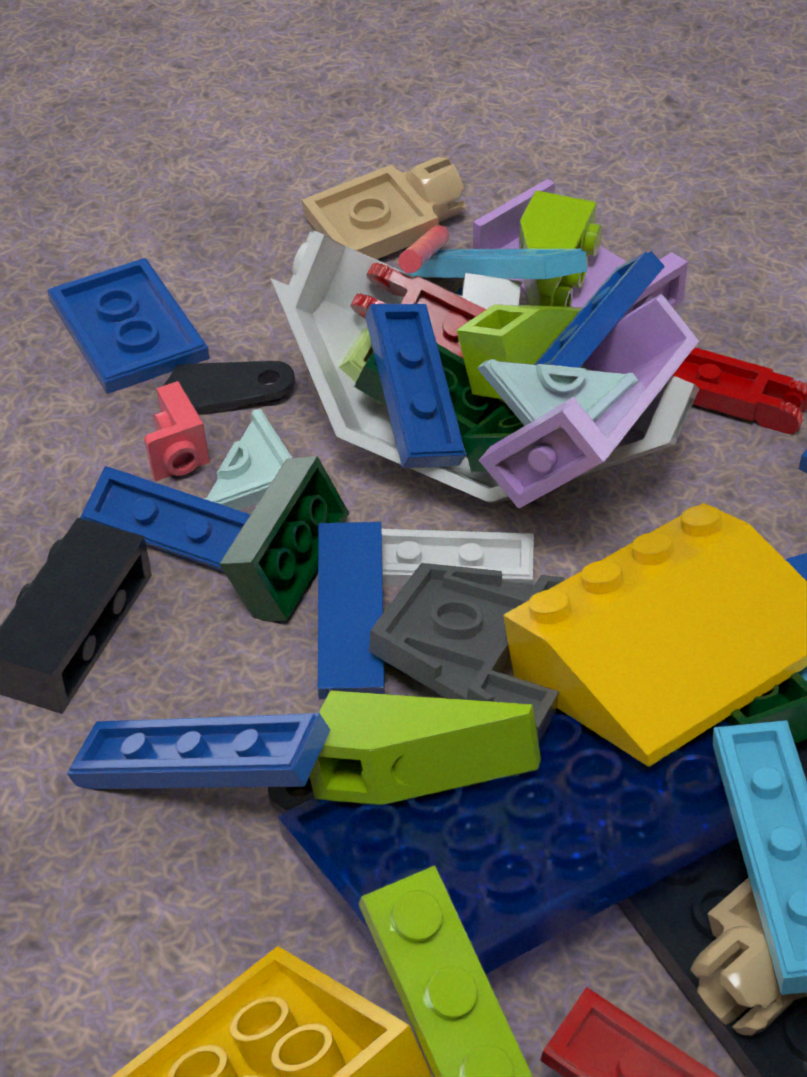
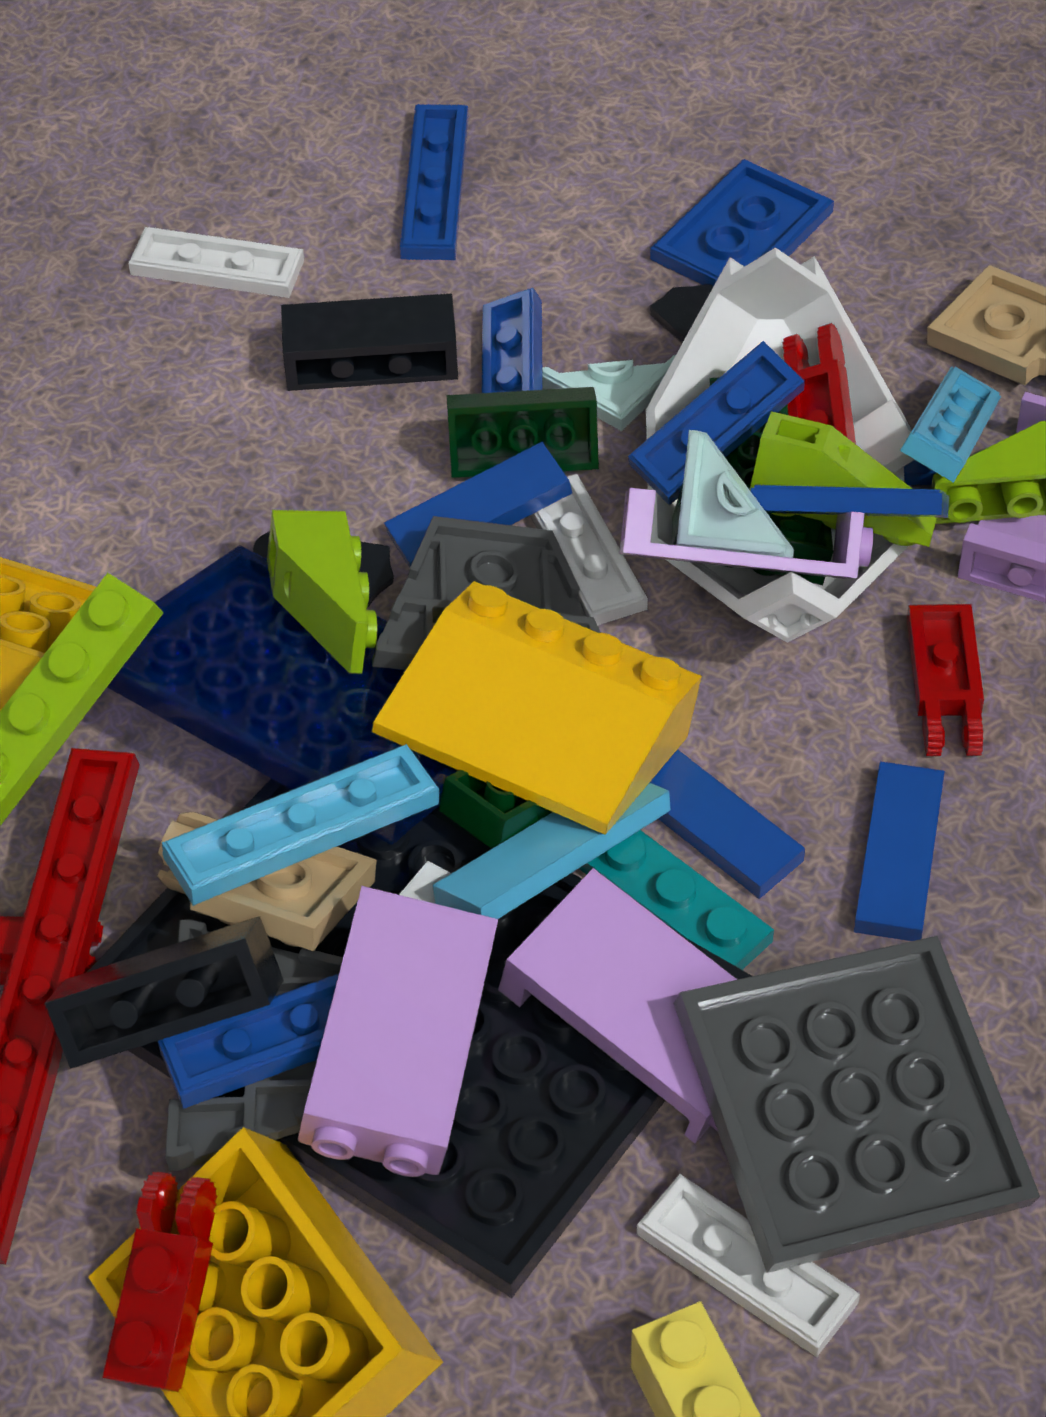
camera: 65 degrees right, 5 degrees up
(179, 436) = (614, 321): coral bracket -> none
(201, 752) = (253, 465): blue tile -> none
(423, 249) = (925, 363): coral bar -> none

